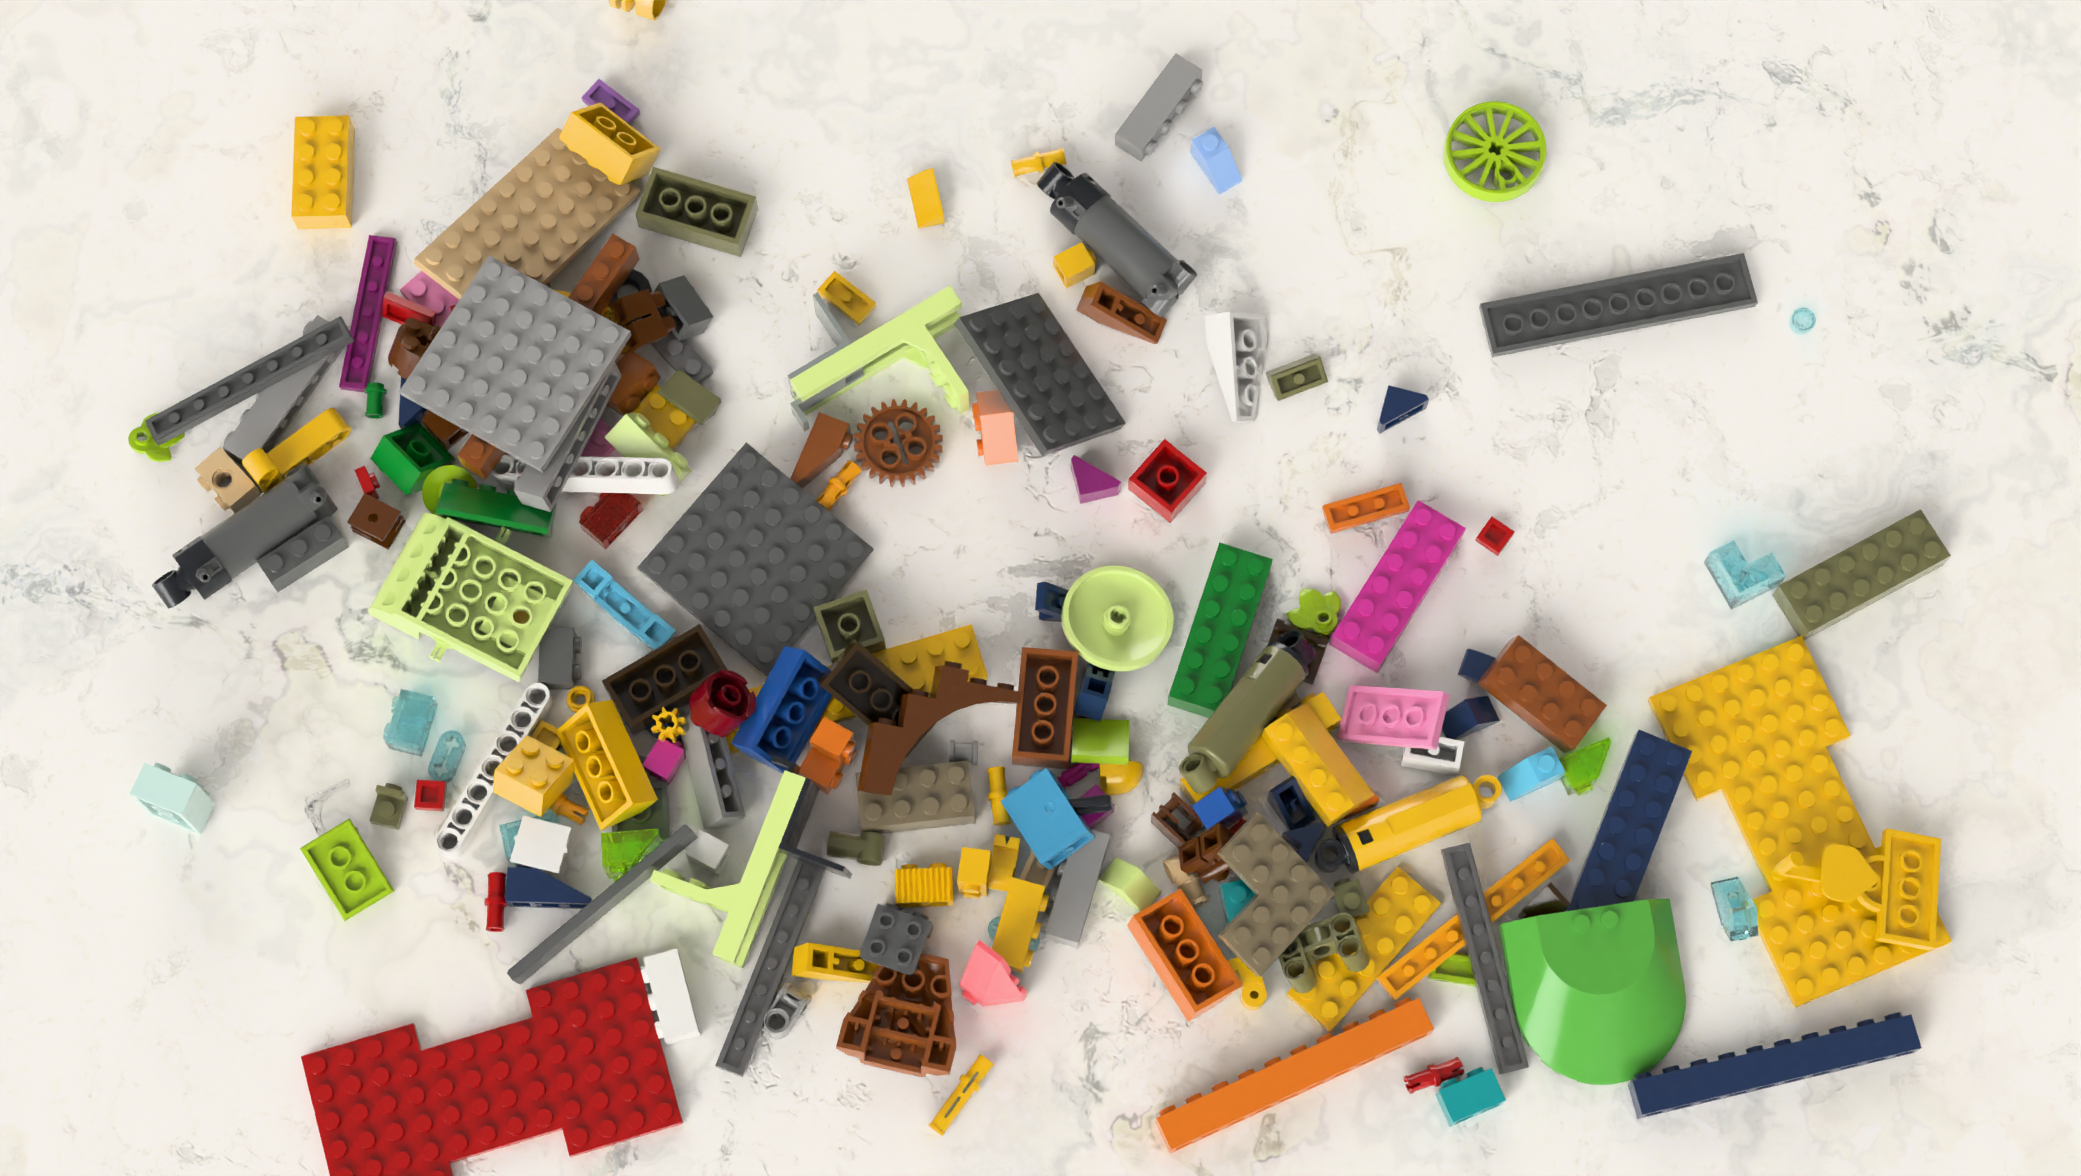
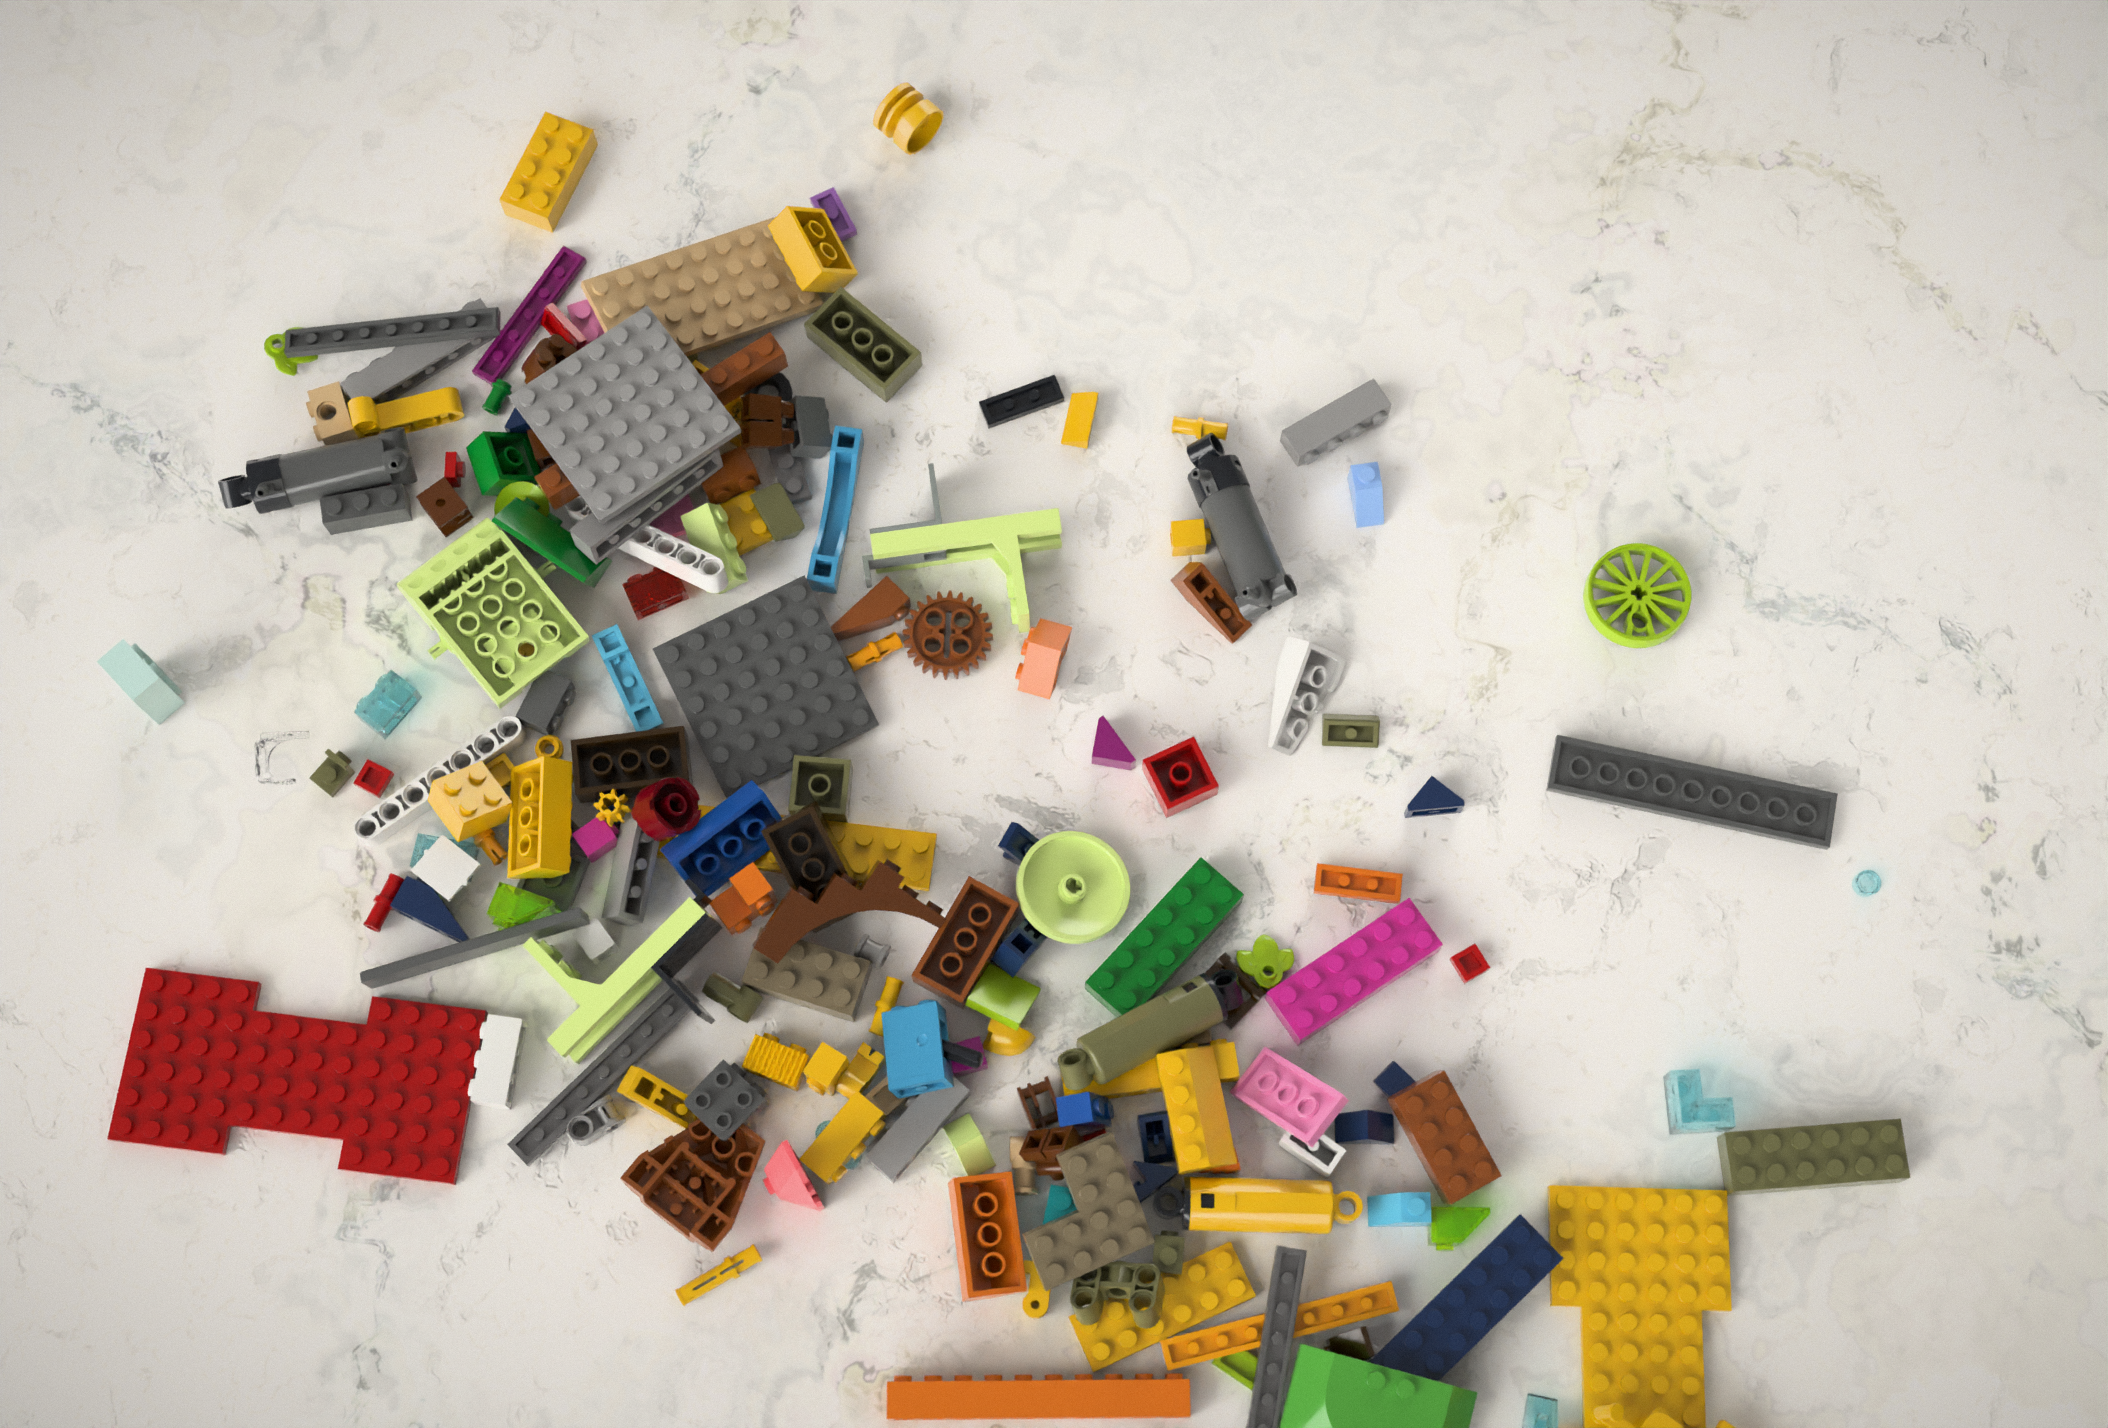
camera: 25 degrees right, 0 degrees up
(347, 869) = (267, 814): lime tile -> none
(440, 756) = (400, 748): clear light blue beam -> none
(743, 371) = (839, 497): none -> dark azure arch
(846, 298) = (963, 480): yellow plate -> none
(864, 205) = (1021, 401): none -> black tile
(1040, 374) = (1106, 626): dark grey plate -> none
(1076, 773) = (965, 1017): dark pink axle -> none

